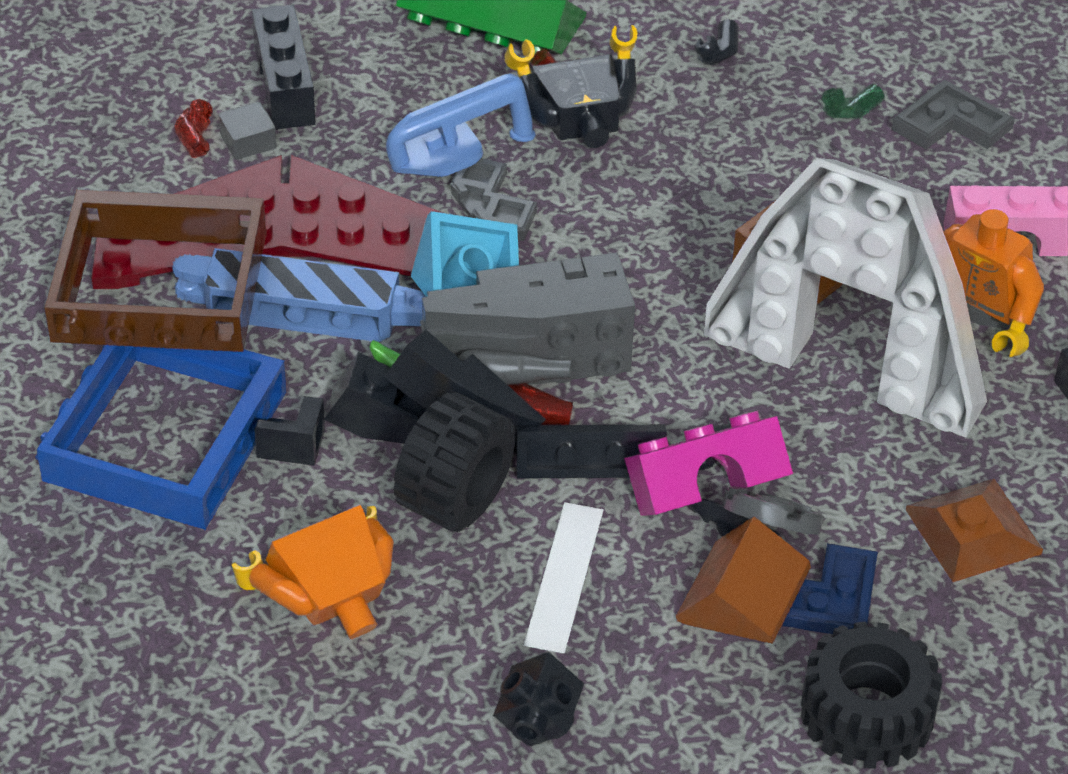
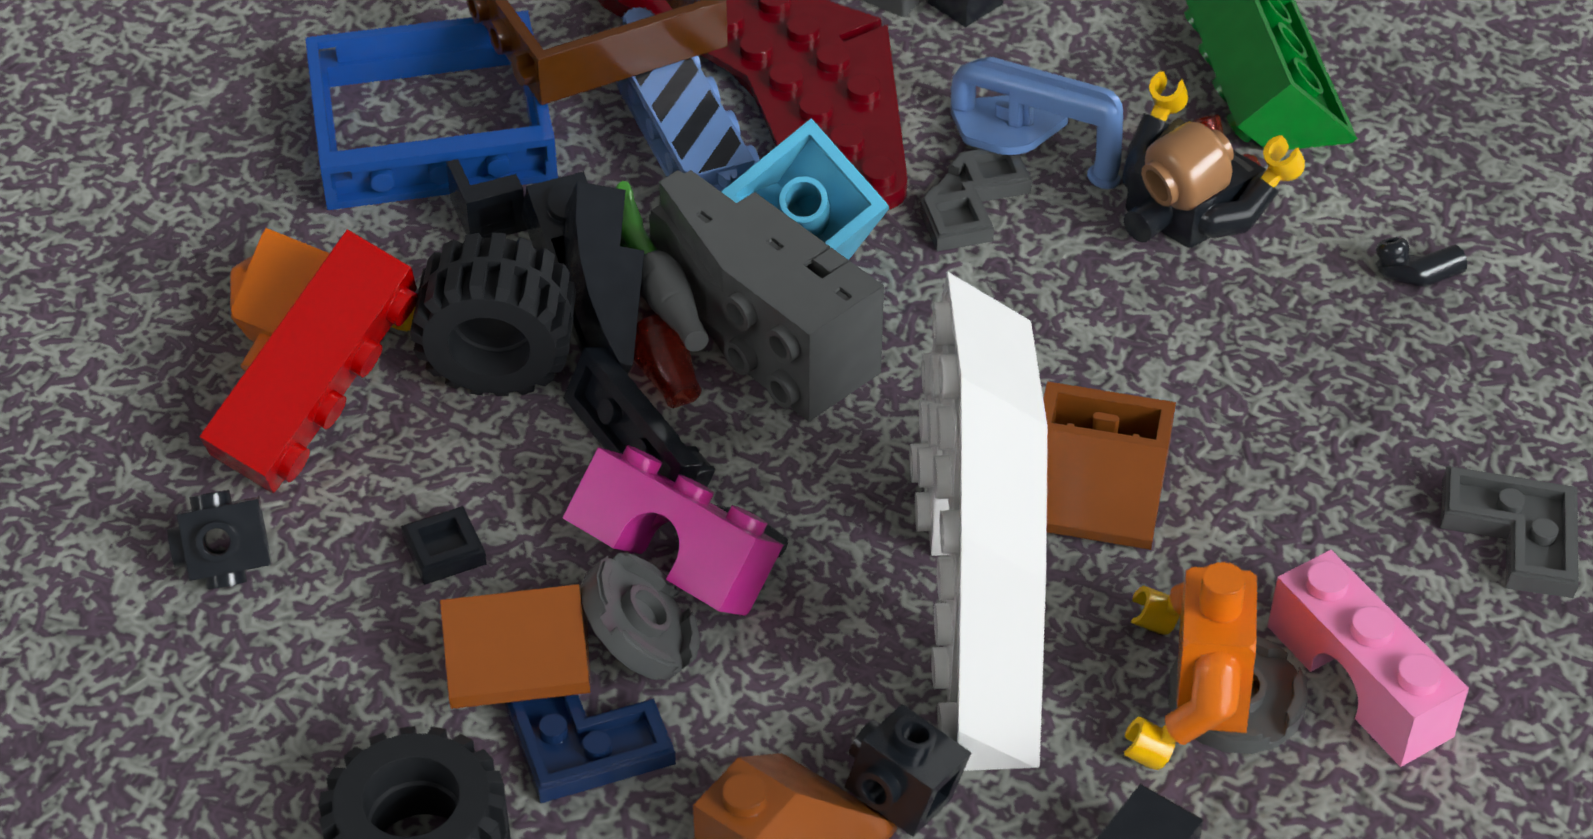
camera: 60 degrees right, 0 degrees up
(426, 575) = (311, 362): none -> red brick
(563, 578) = (473, 491): white sticker -> none
(600, 79) = (1188, 166): none -> medium nougat head
(610, 595) = (443, 545): none -> black tile
(853, 107) = (1437, 426): clear green arm -> none
(977, 446) = (905, 768): none -> black brick

